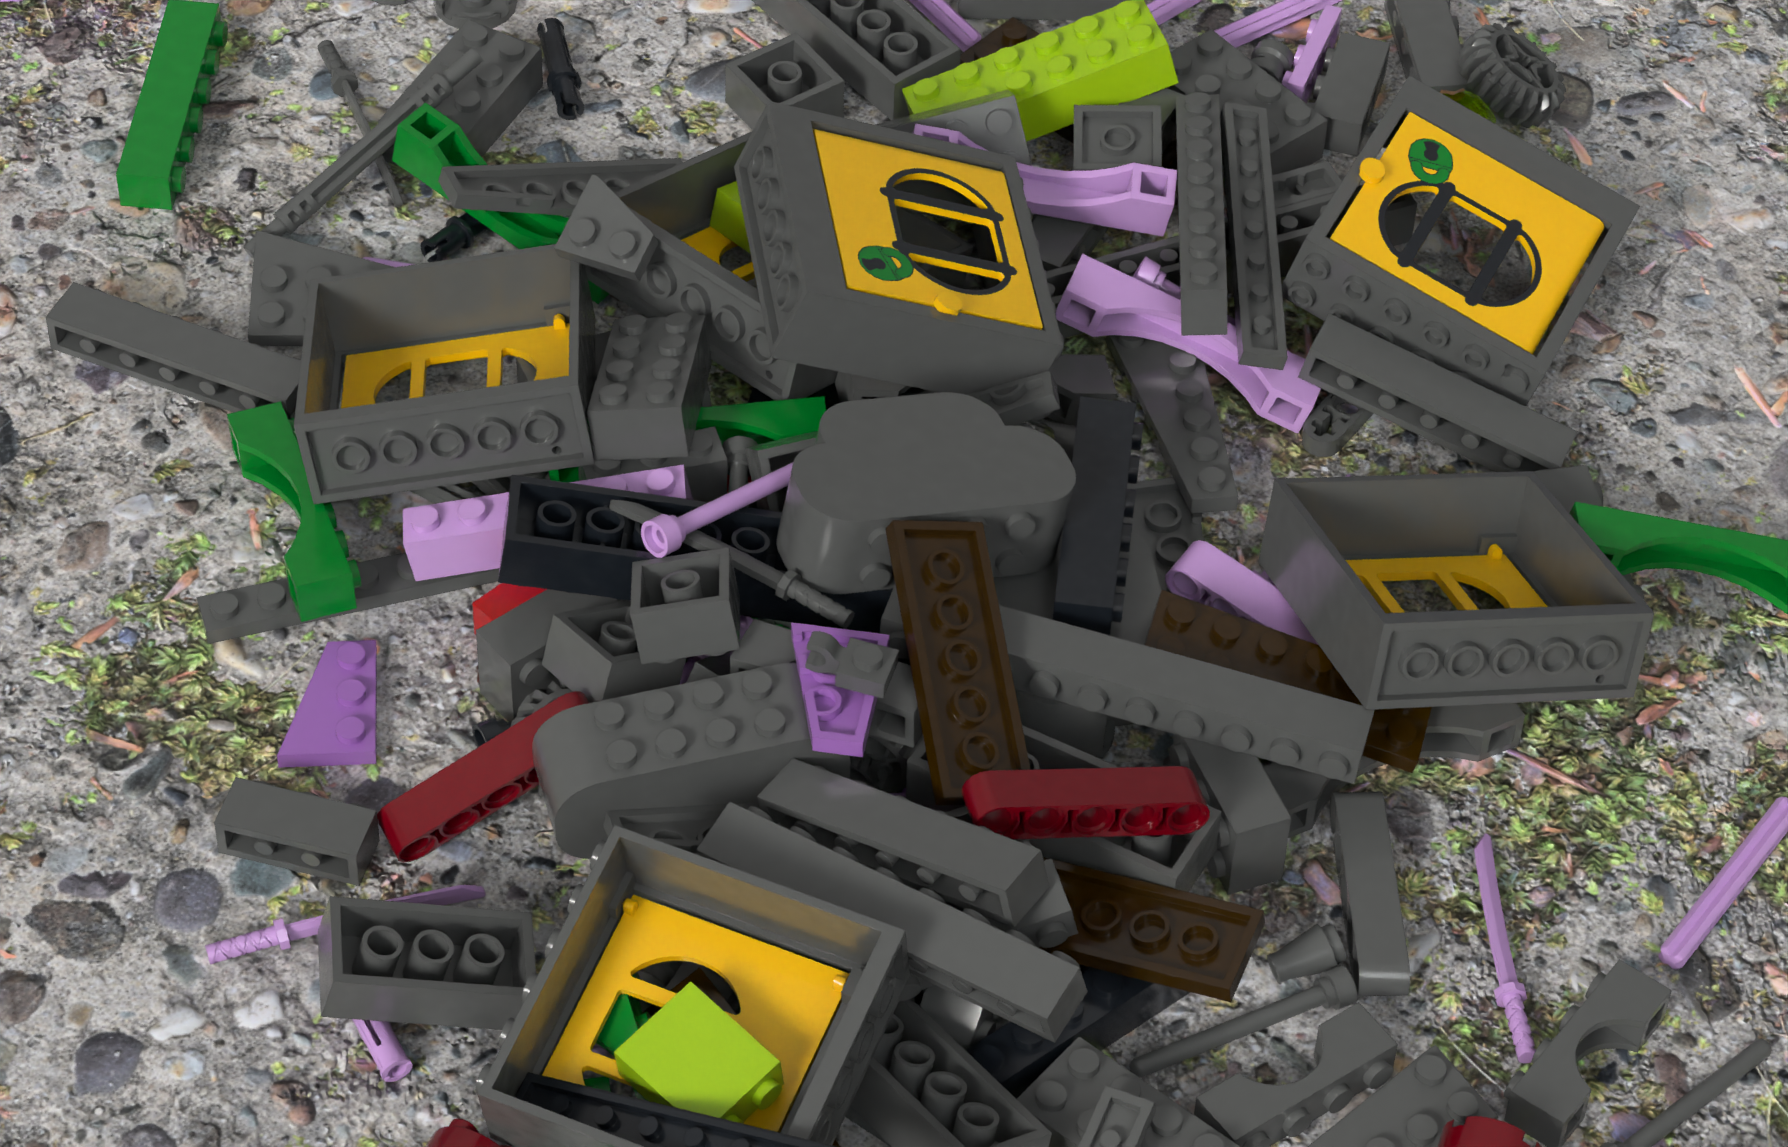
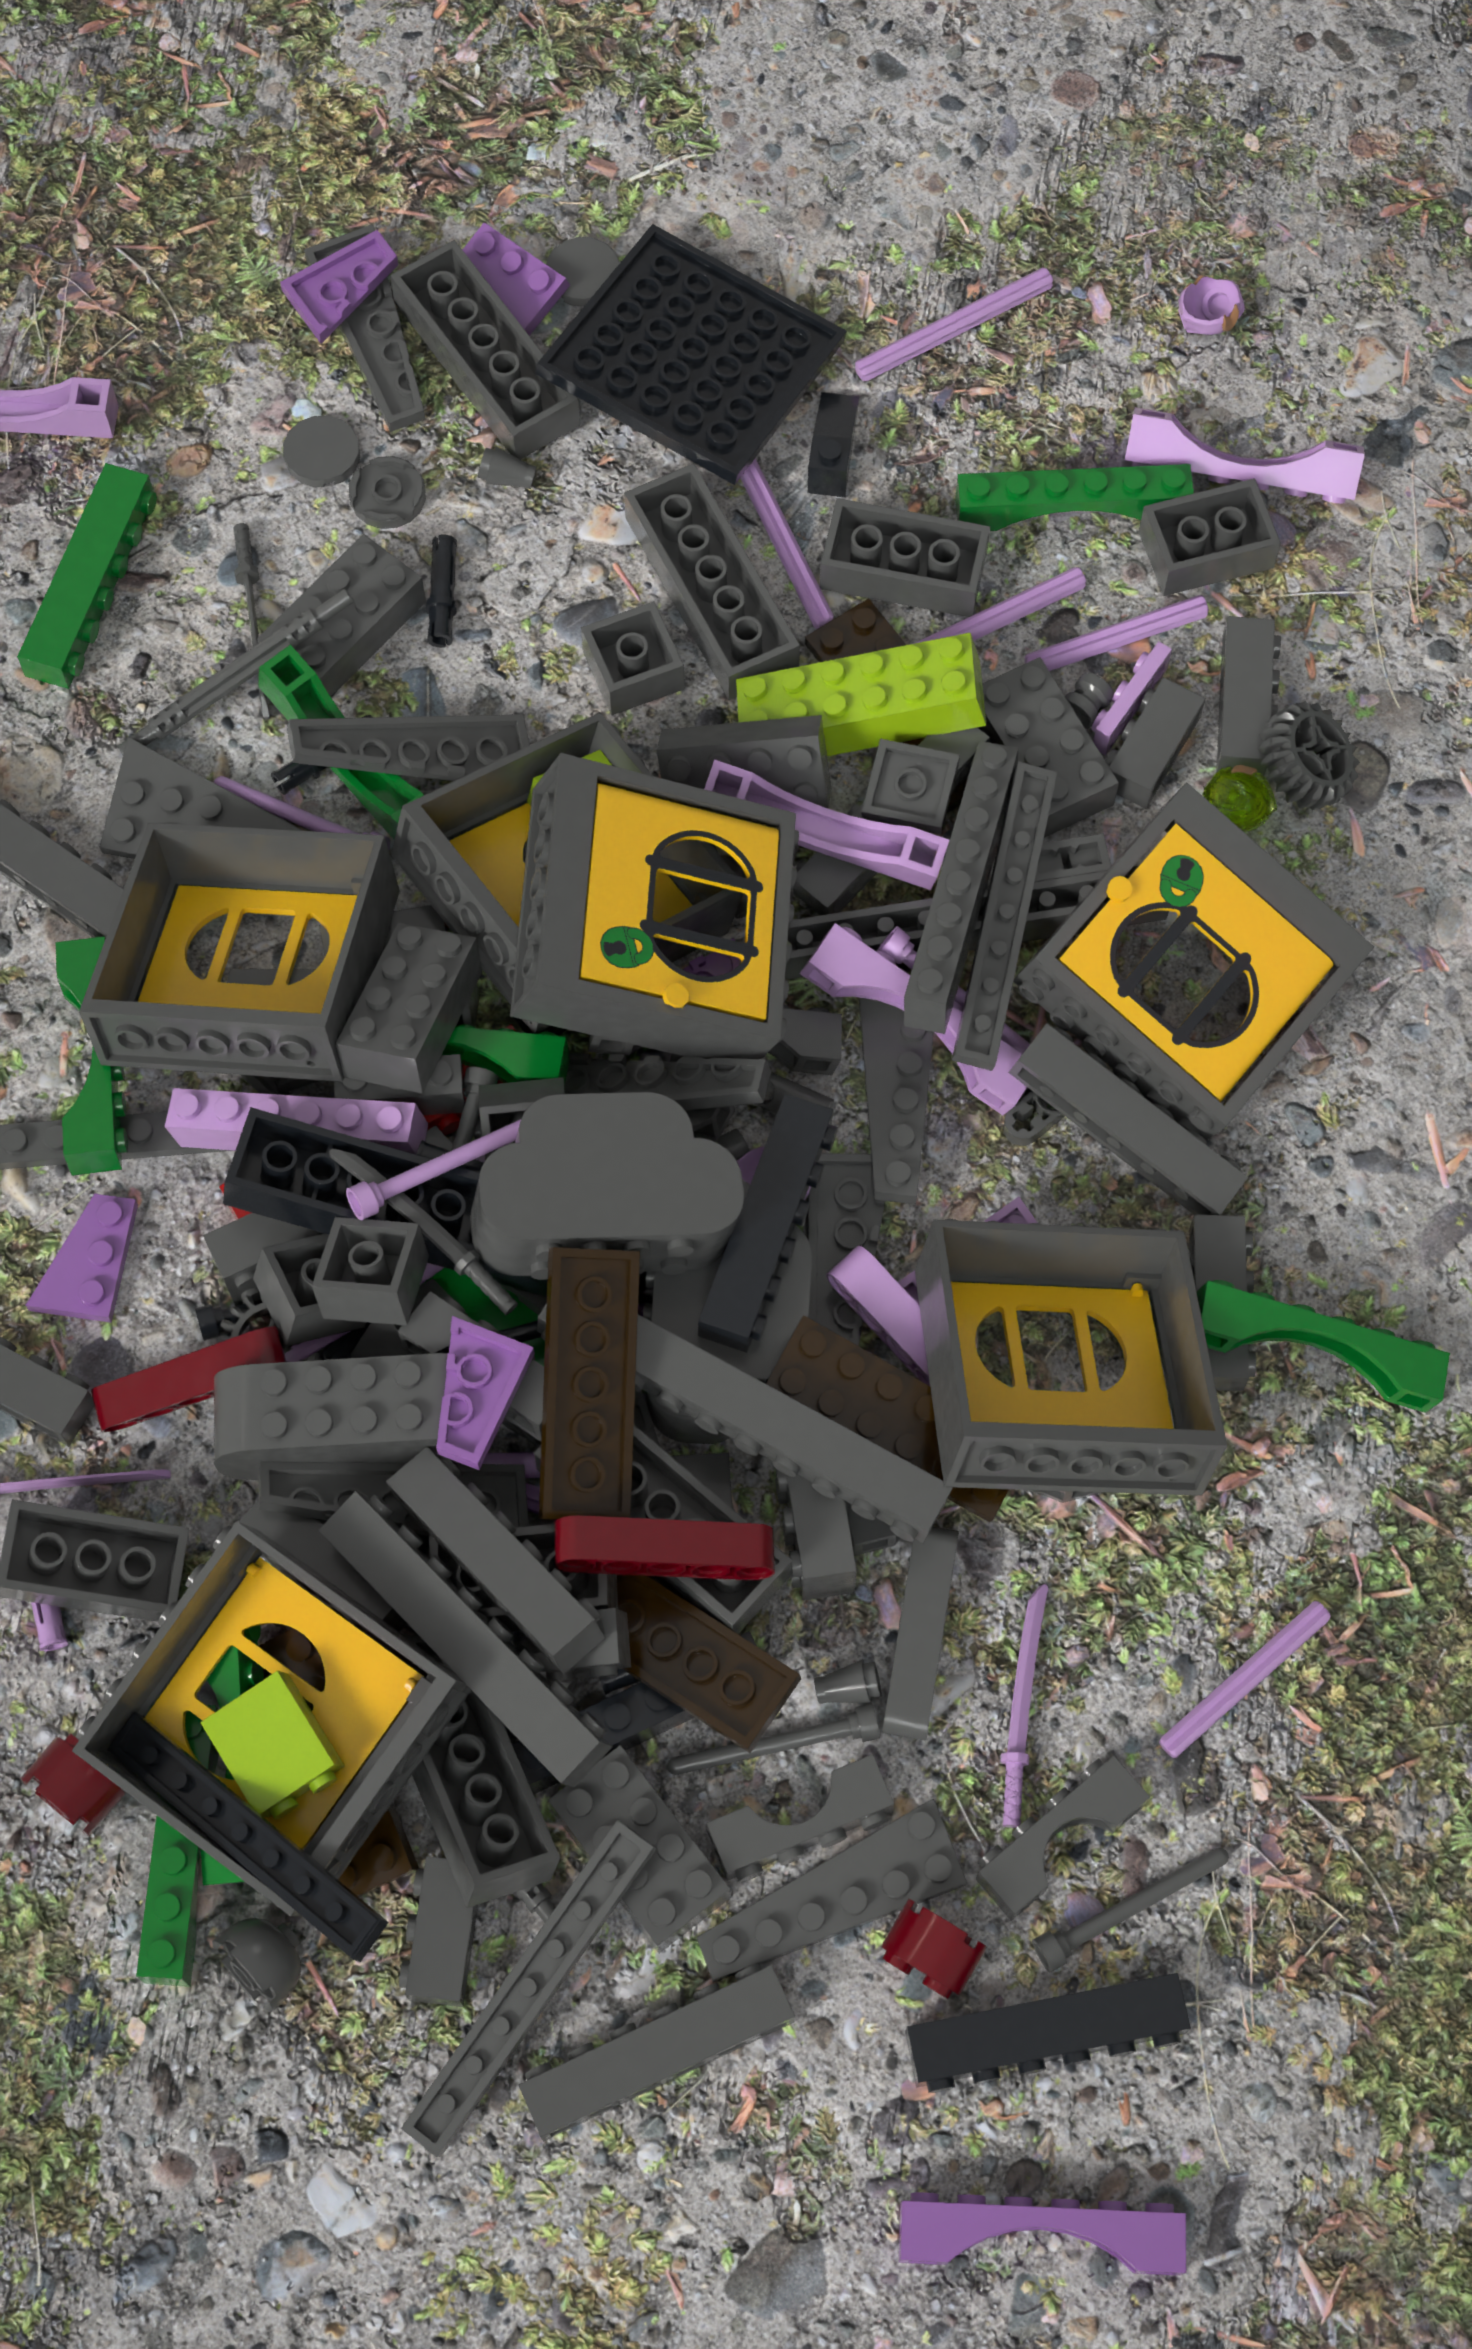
camera: 15 degrees right, 20 degrees up
(606, 234) = (401, 844): dark grey wing -> none
(858, 667) = (495, 1383): dark grey plate -> none

